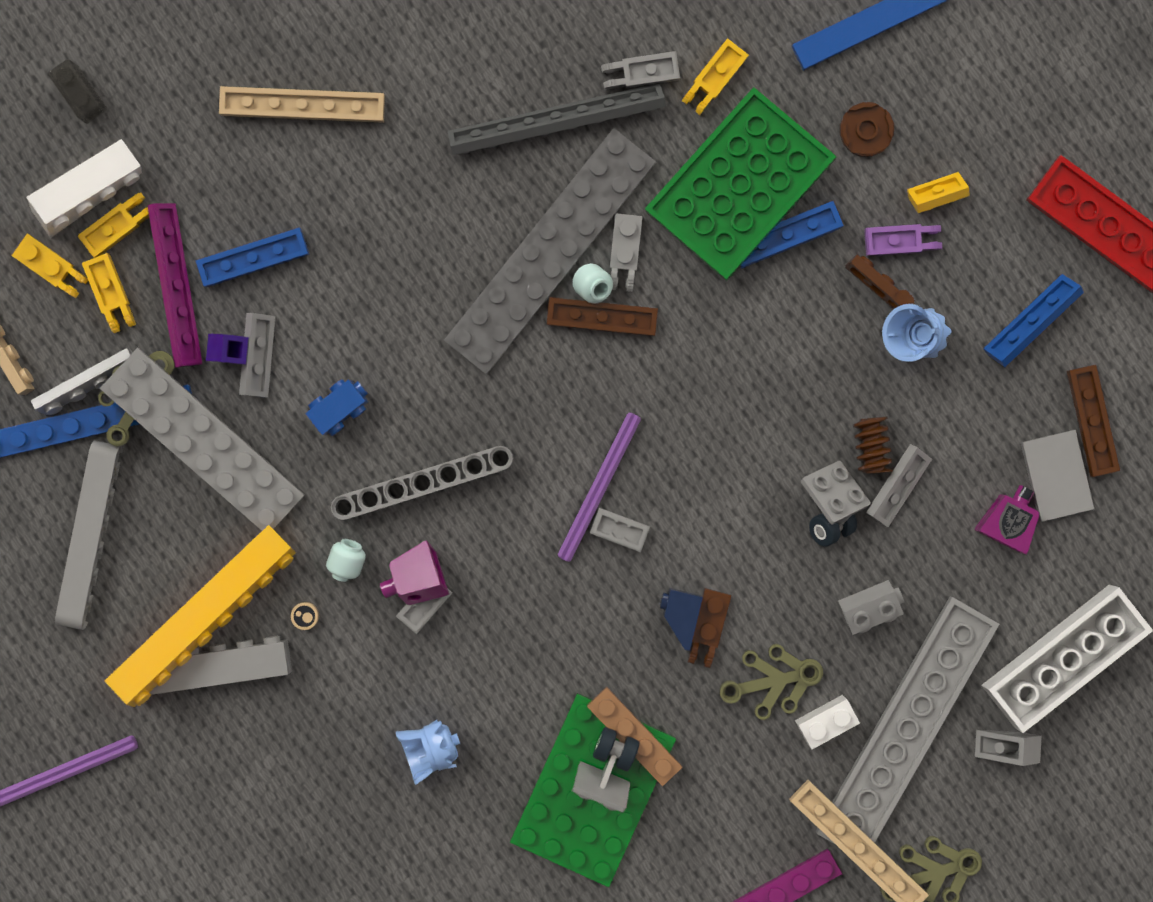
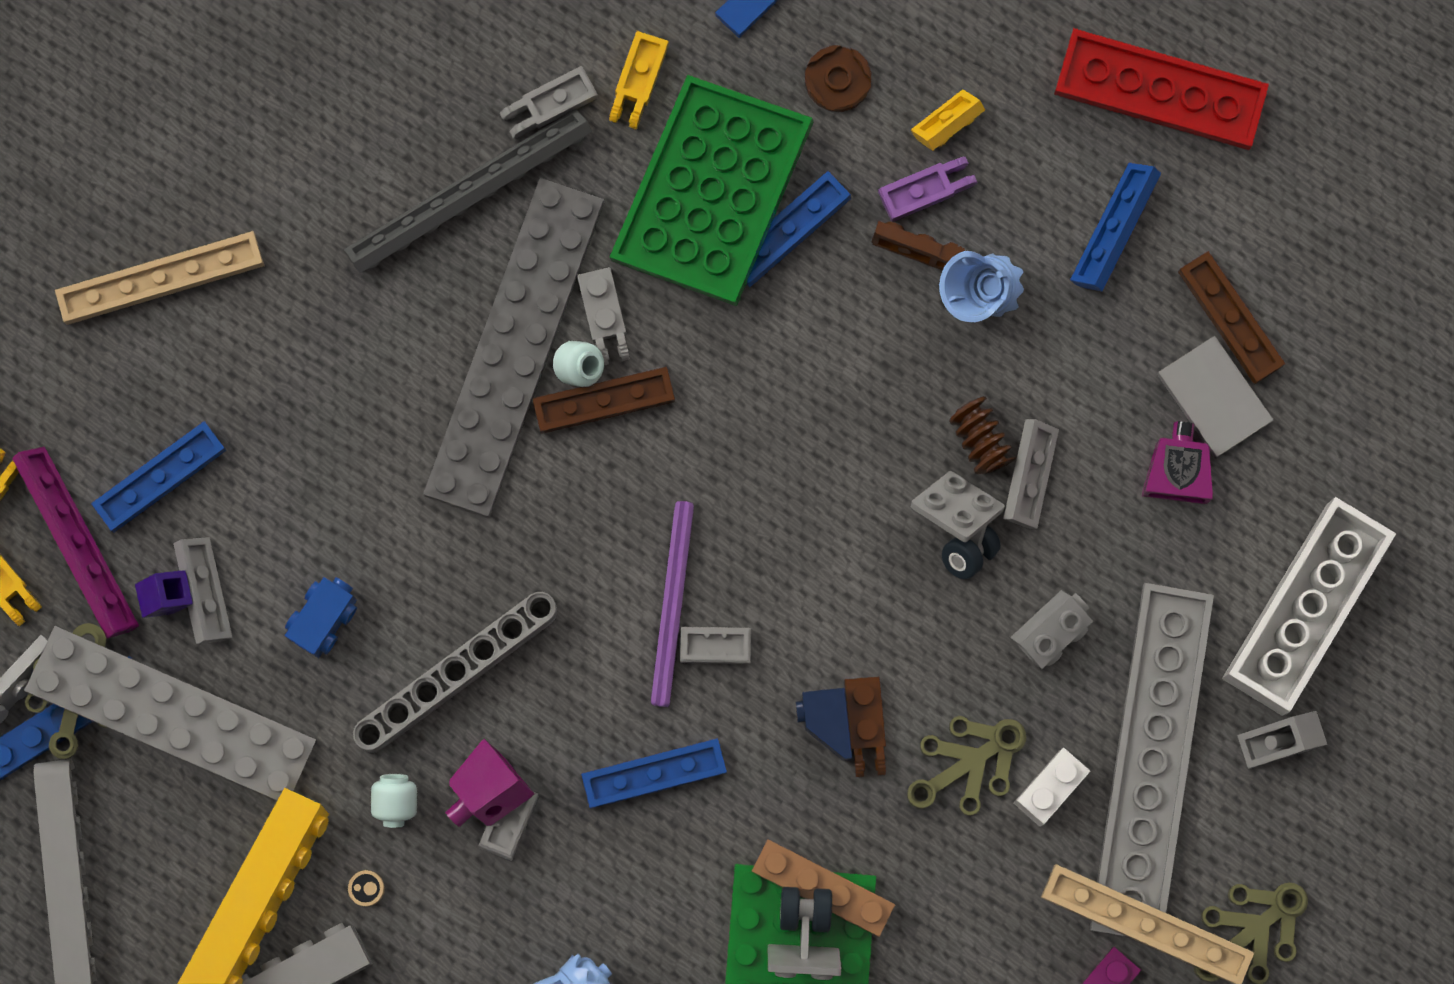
camera: 20 degrees left, 10 degrees down
(541, 607) = (654, 773): none -> blue plate

